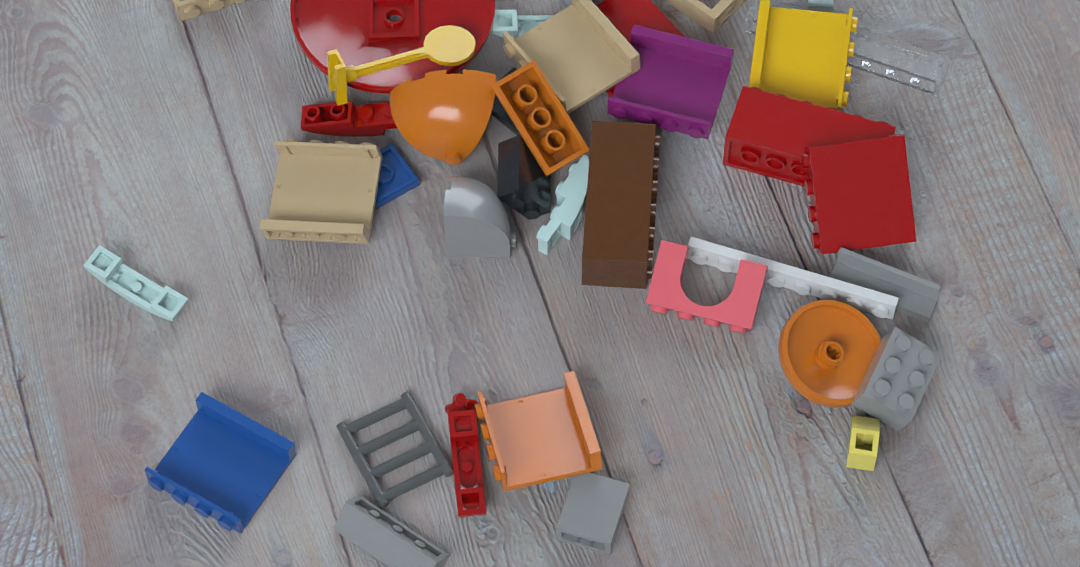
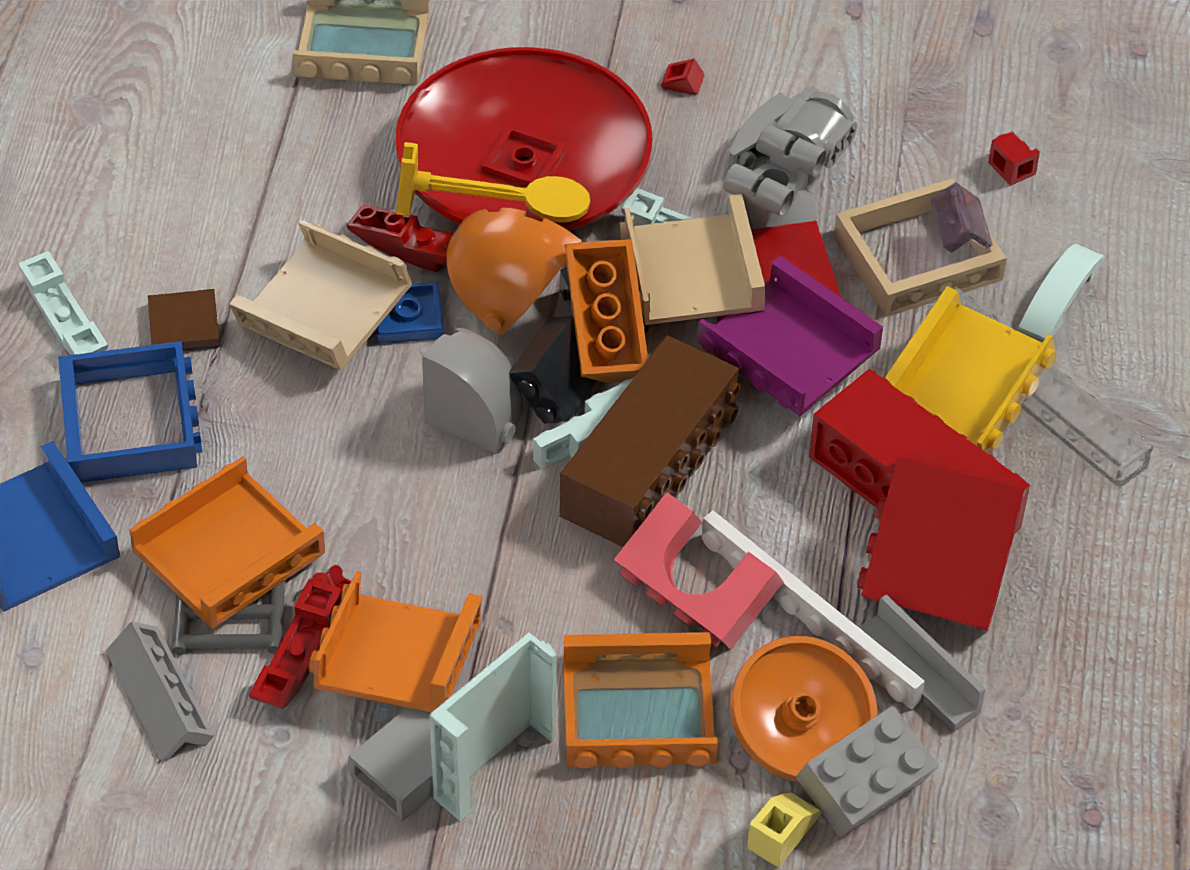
camera: 25 degrees right, 10 degrees down
(212, 305) = (120, 365): none -> blue window
(227, 254) = (184, 318): none -> reddish brown tile
(372, 413) = (225, 543): none -> orange panel
(659, 431) = (489, 715): none -> light aqua panel
(716, 397) = (638, 700): none -> panel

